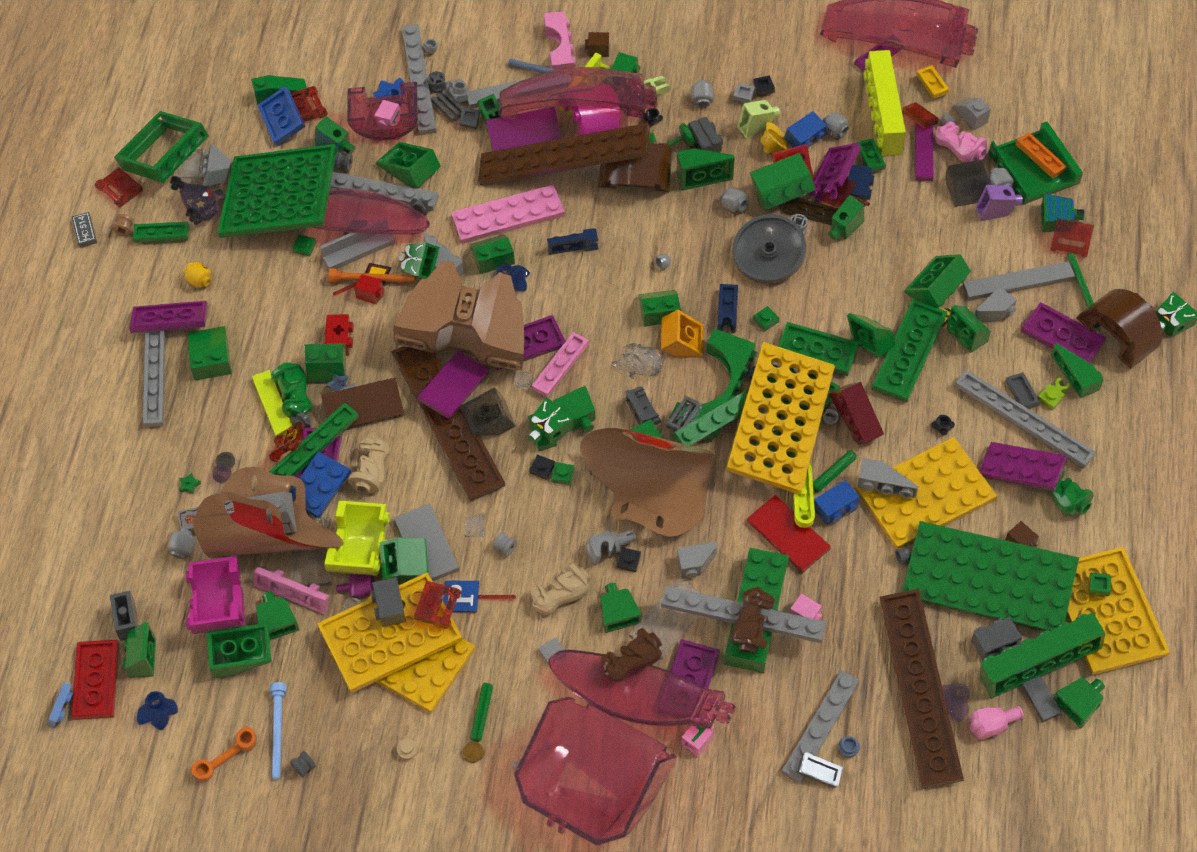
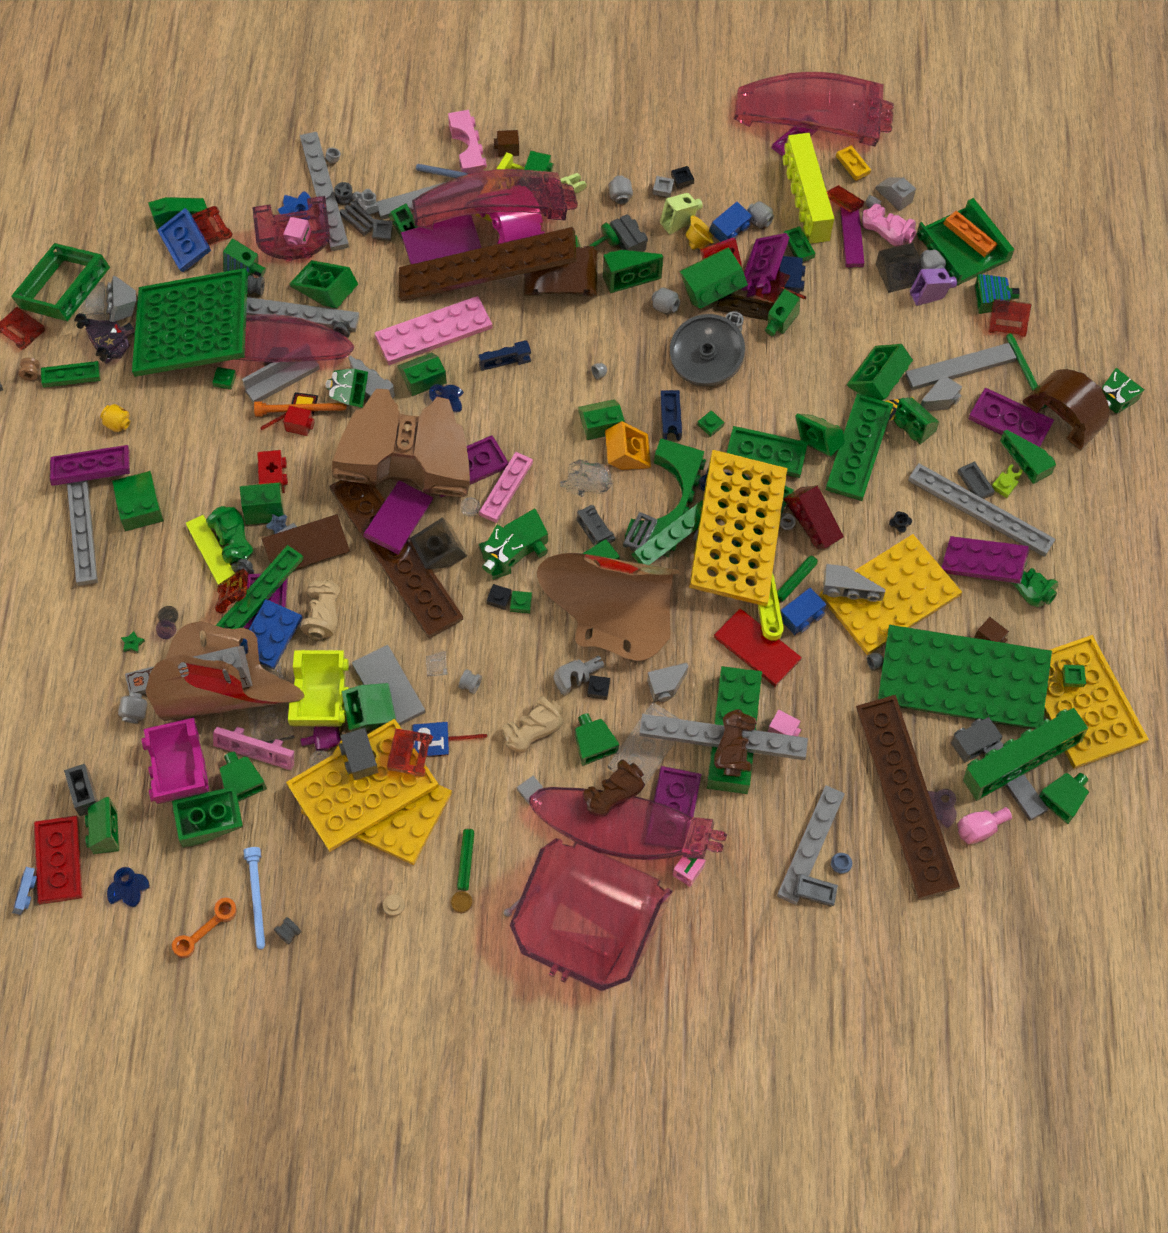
camera: 10 degrees left, 5 degrees up
(652, 116) = (576, 217): black plate -> none

